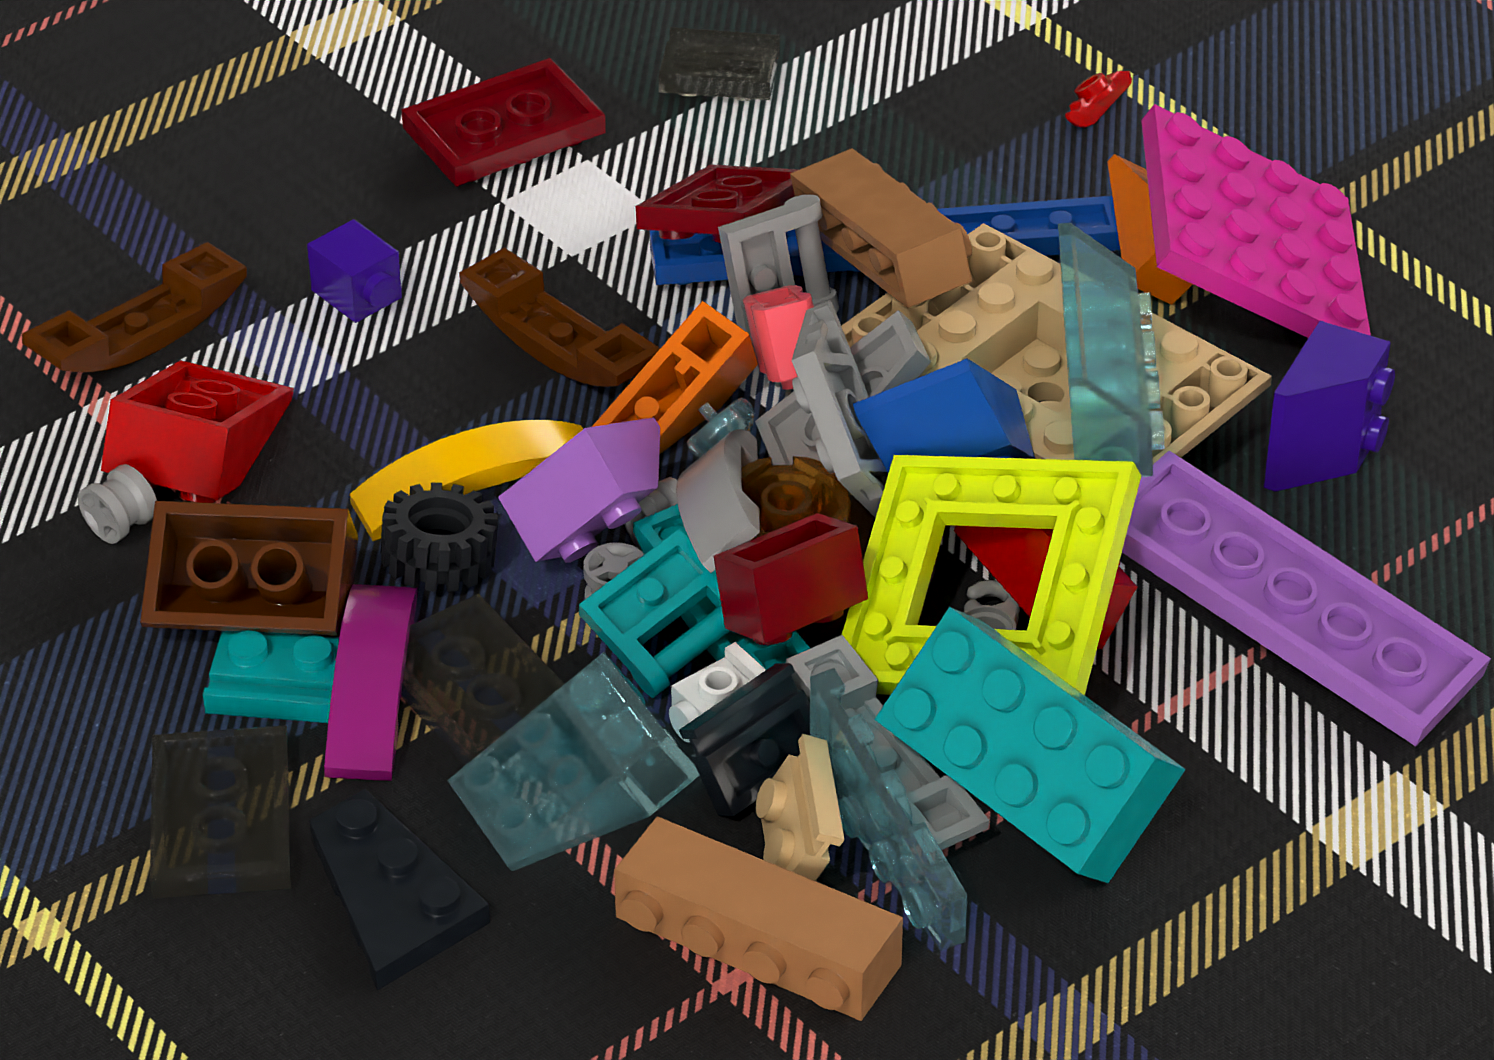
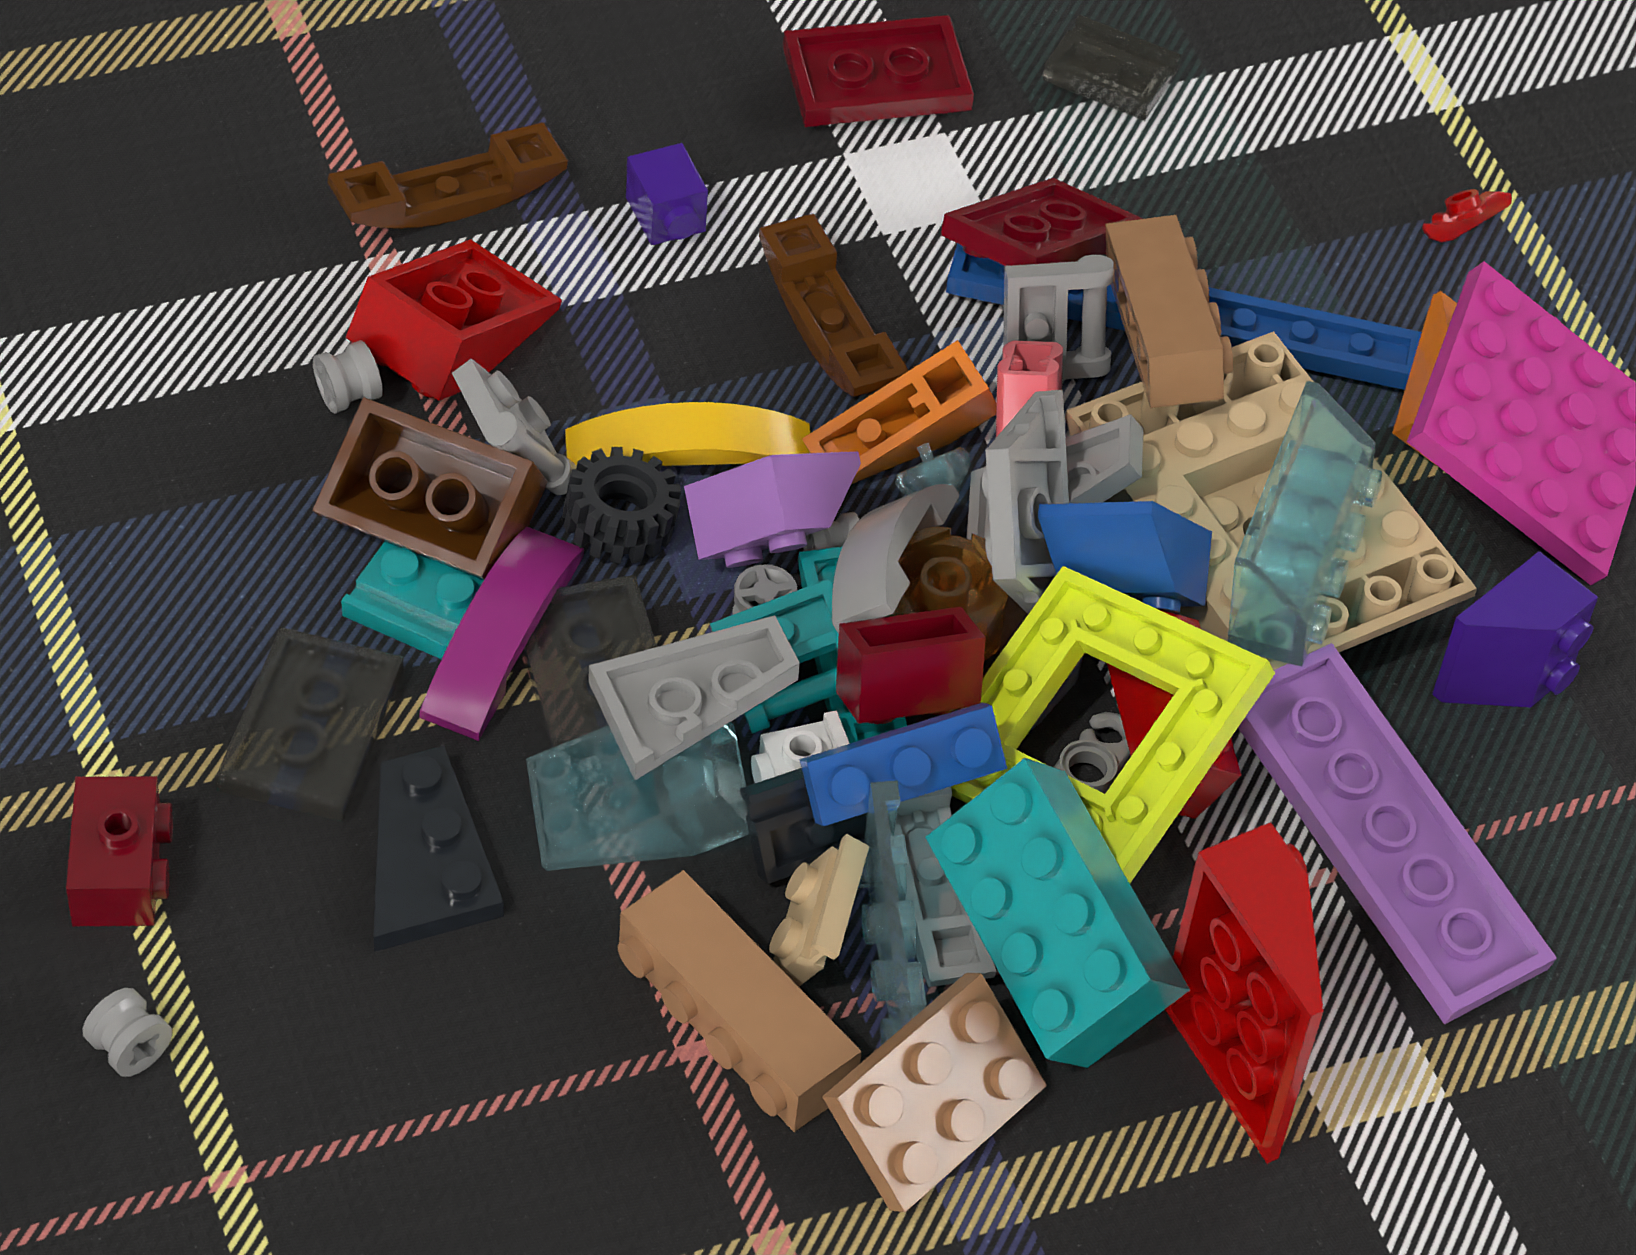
camera: 15 degrees right, 10 degrees up
(84, 972) = (115, 851): none -> dark red brick
(305, 487) = (513, 422): none -> light grey plate
(597, 650) = (690, 688): none -> light grey wing
(851, 641) = (918, 756): none -> blue plate
(986, 934) = (934, 1091): none -> plate
(1255, 736) = (1251, 978): none -> red slope

